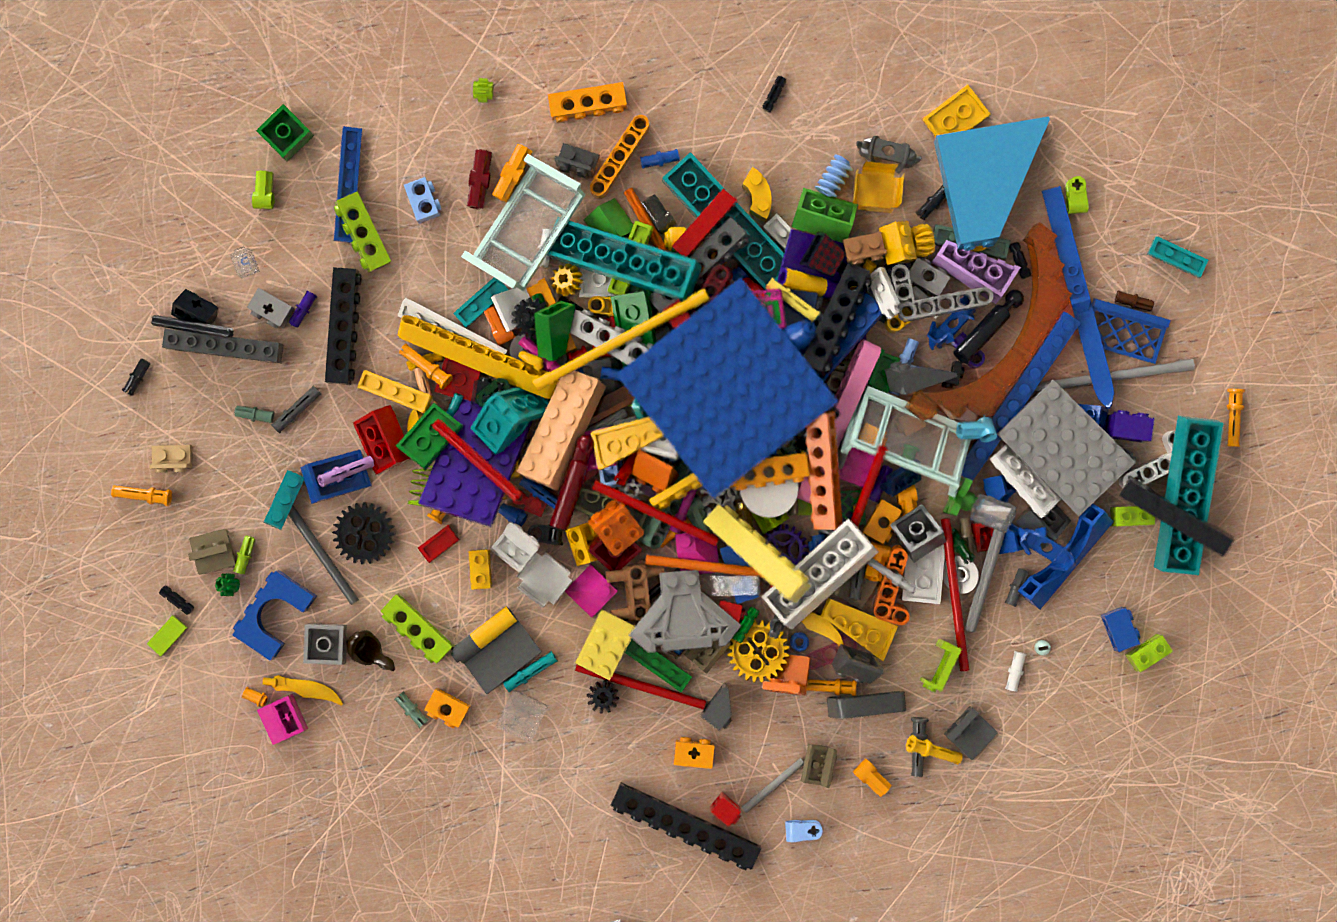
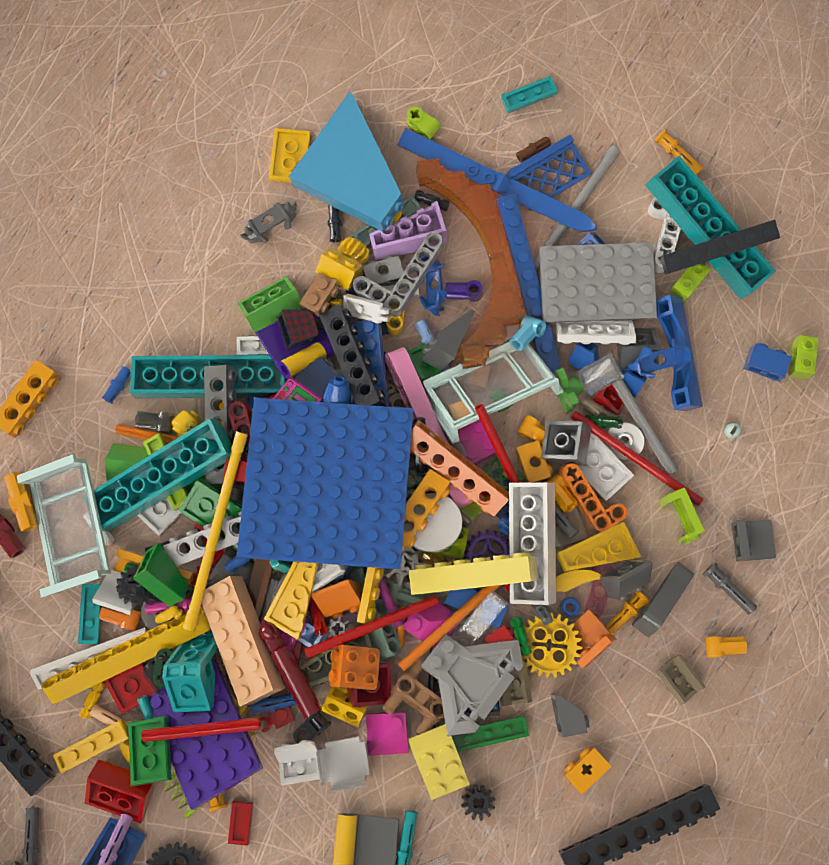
camera: 50 degrees left, 10 degrees down
(432, 371) = (103, 701): light orange pin -> none
(480, 569) = (290, 807): yellow brick -> none
(513, 514) = (272, 740): blue cone -> none
(560, 283) = (136, 533): yellow gear -> none
(577, 160) = (59, 445): dark grey bracket -> none
(606, 309) = (186, 525): yellow piece -> none
(621, 147) = (81, 405): light orange beam -> none
(648, 688) = (502, 759): red piece -> none
(705, 223) = (192, 390): red panel -> none
(726, 809) = (653, 785): red brick -> none
(759, 193) = (210, 335): yellow brick -> none
(773, 785) = (665, 754): light grey bar -> none
(774, 93) = (151, 263): black axle -> none
(794, 301) = (310, 376): light yellow pin -> none
(798, 830) = (719, 740): light blue piece -> none
(834, 176) = (249, 274): light blue piece -> none
(877, 188) = (286, 252): yellow piece -> none
(881, 478) = (505, 439): dark purple axle -> none
(897, 579) = (588, 488): light grey bar -> none
(900, 480) = (514, 420): dark blue bracket -> none
(927, 749) = (739, 583): yellow pin -> none
(956, 368) = (476, 319): black bracket -> none
(988, 327) = (459, 261): black piece -> none
(1015, 671) = (734, 465): white pin -> none
(1019, 580) = (672, 414): dark grey axle -> none
(1130, 427) = (623, 225): dark purple brick -> none

